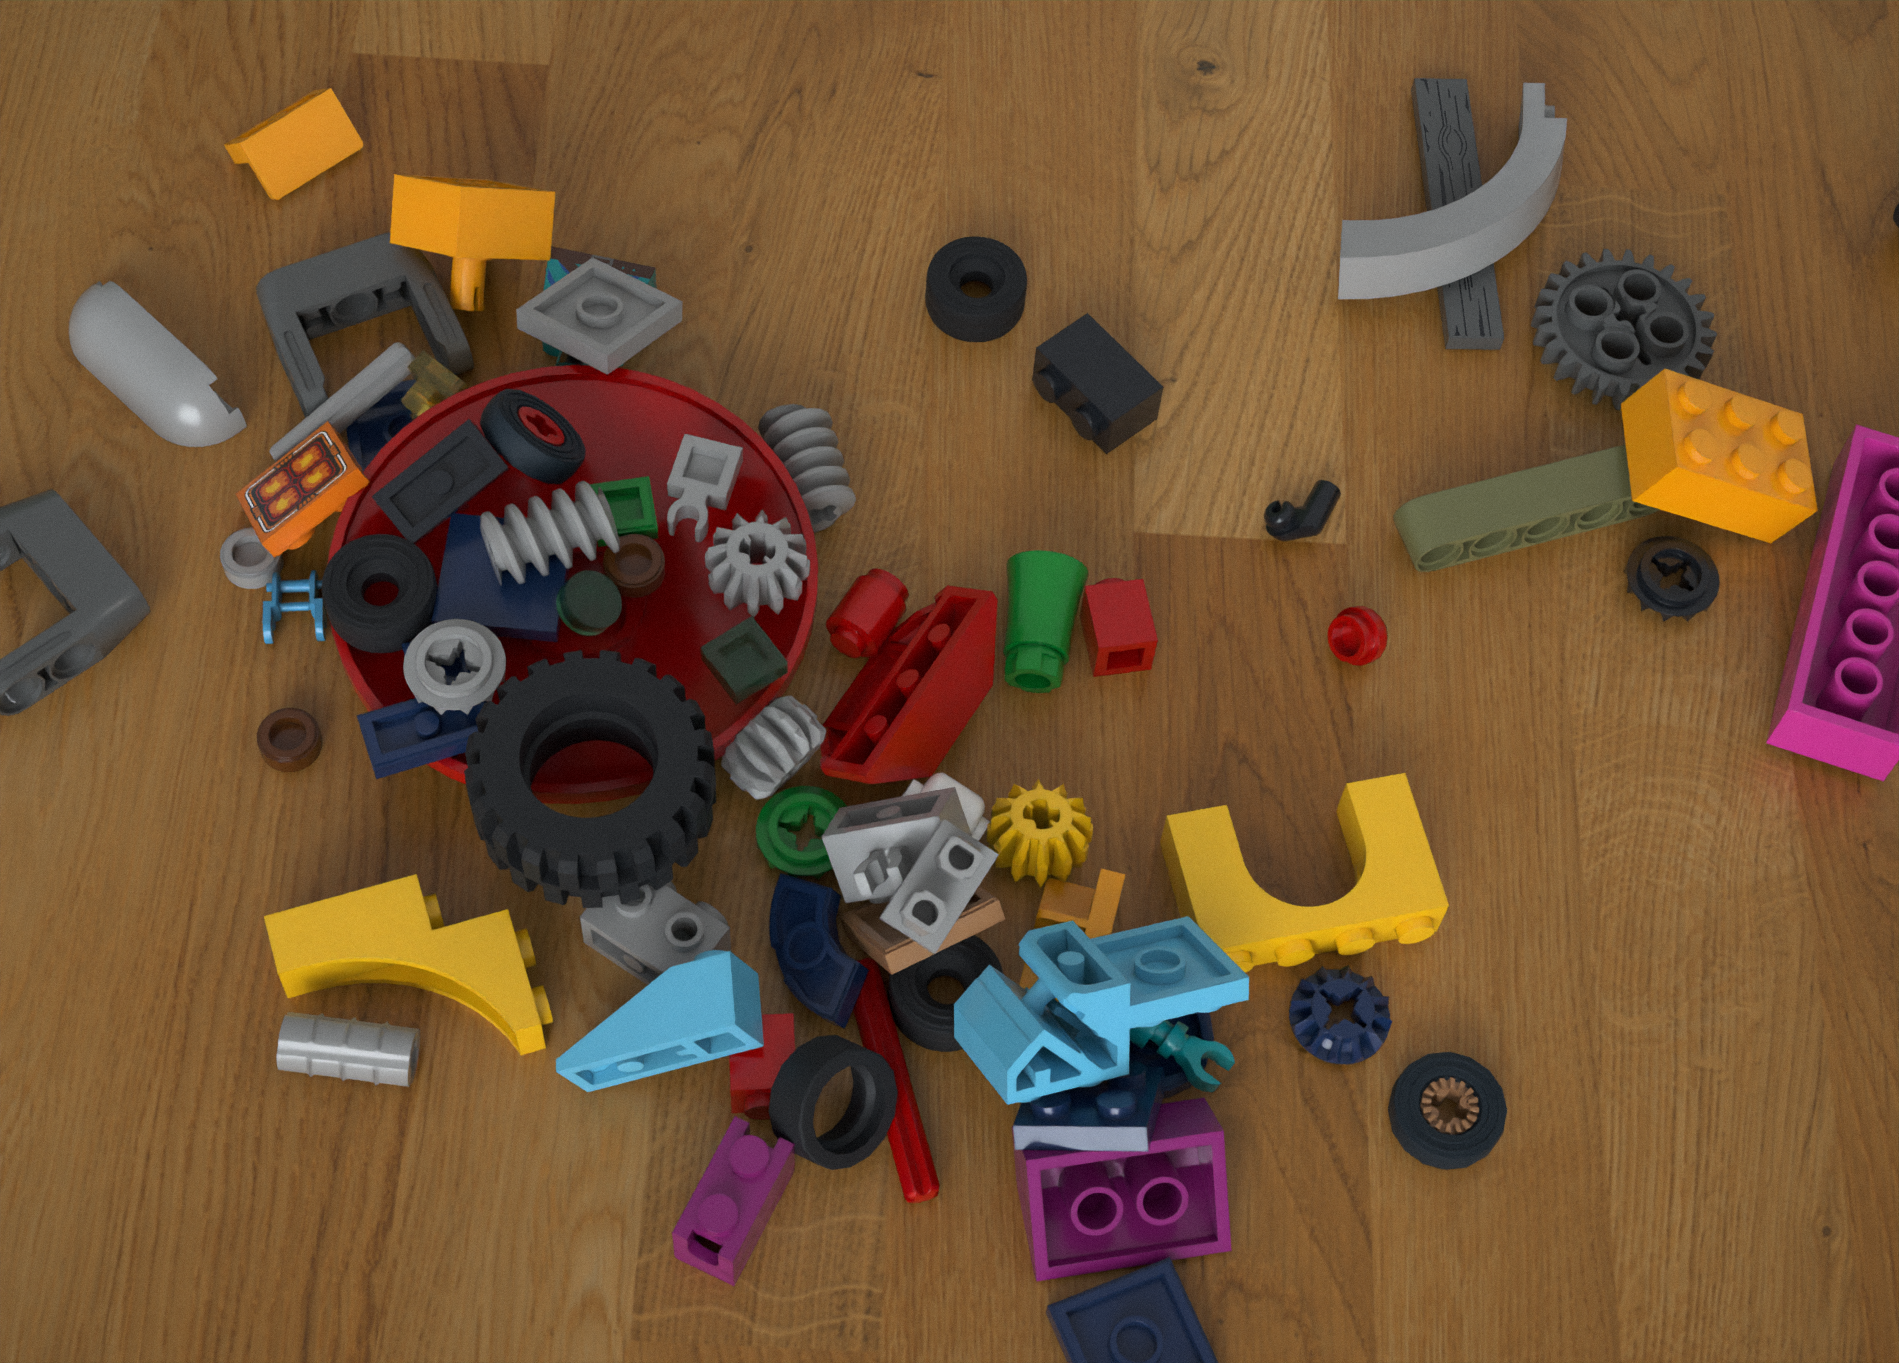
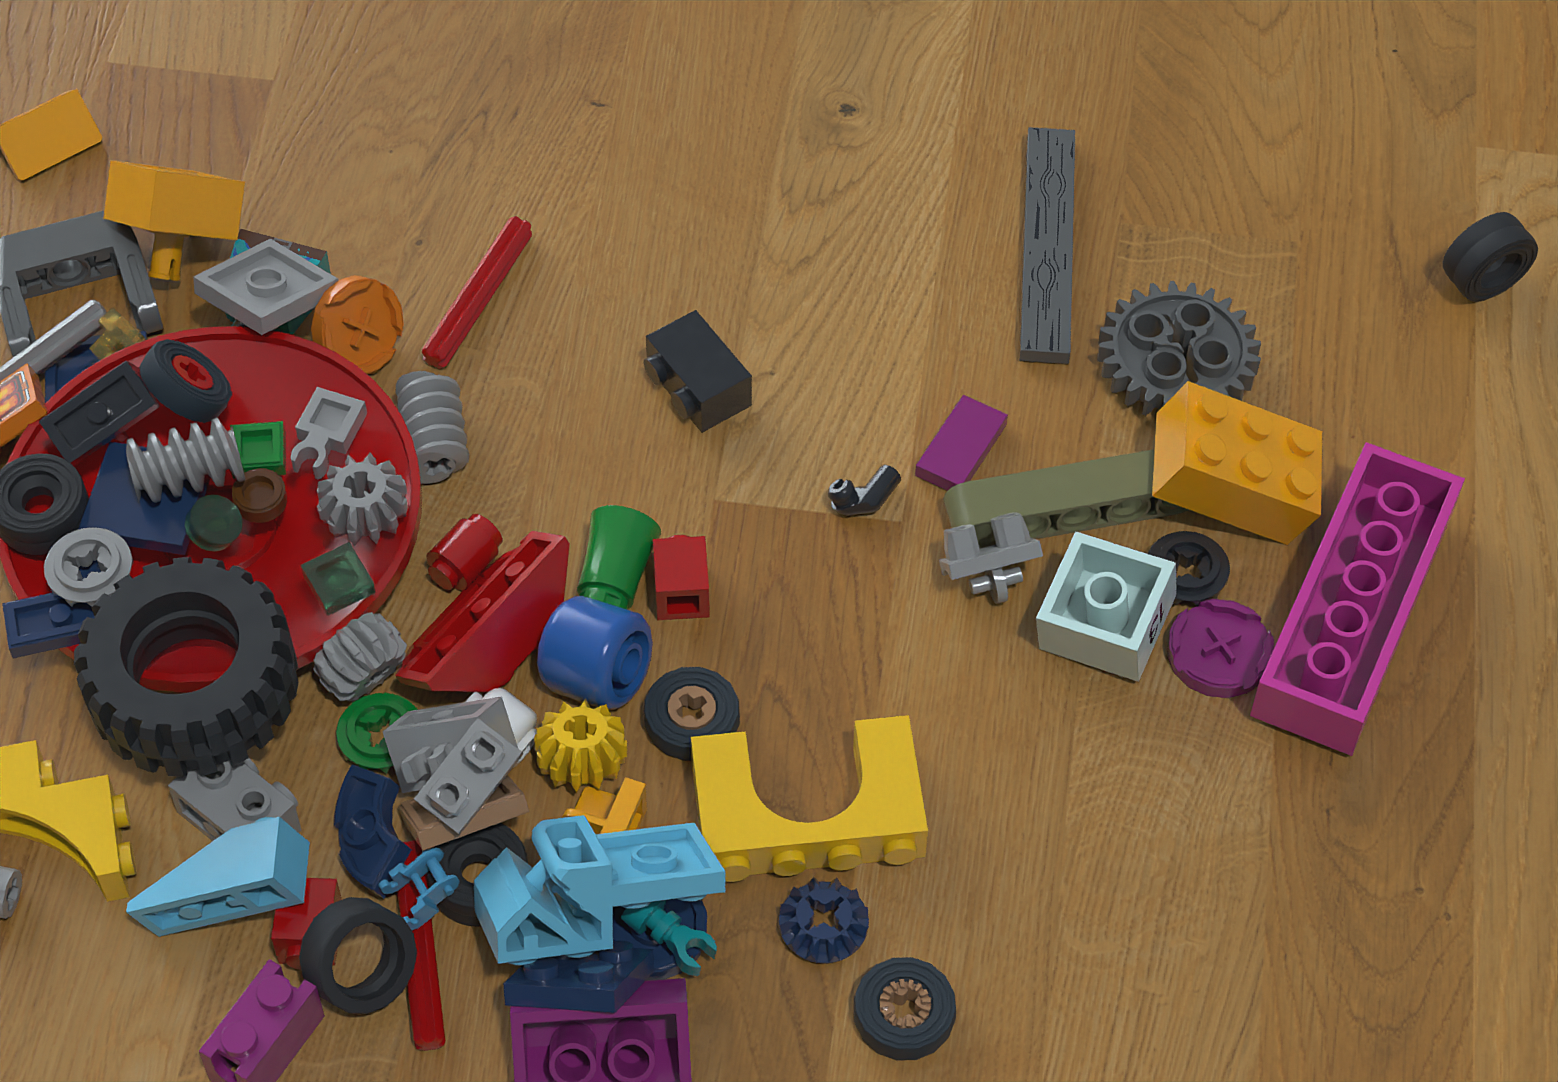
camera: 10 degrees right, 5 degrees down
(706, 348) = (359, 321): none -> orange tile
(827, 305) = (476, 292): none -> red axle
(920, 1011) = (429, 898): none -> dark azure piece
(982, 261) = (607, 310): black tyre -> none
(1038, 722) = (594, 652): none -> blue head
(1151, 755) = (692, 688): none -> black bush
(1357, 635) = (894, 598): red plate -> none
(1400, 451) = (961, 444): none -> magenta tile
(1436, 585) = (1011, 547): none -> light grey hips
(1468, 234) = (1050, 259): light grey arch -> none
(1599, 630) = (1106, 606): none -> light aqua brick
(1721, 668) = (1219, 648): none -> magenta tile

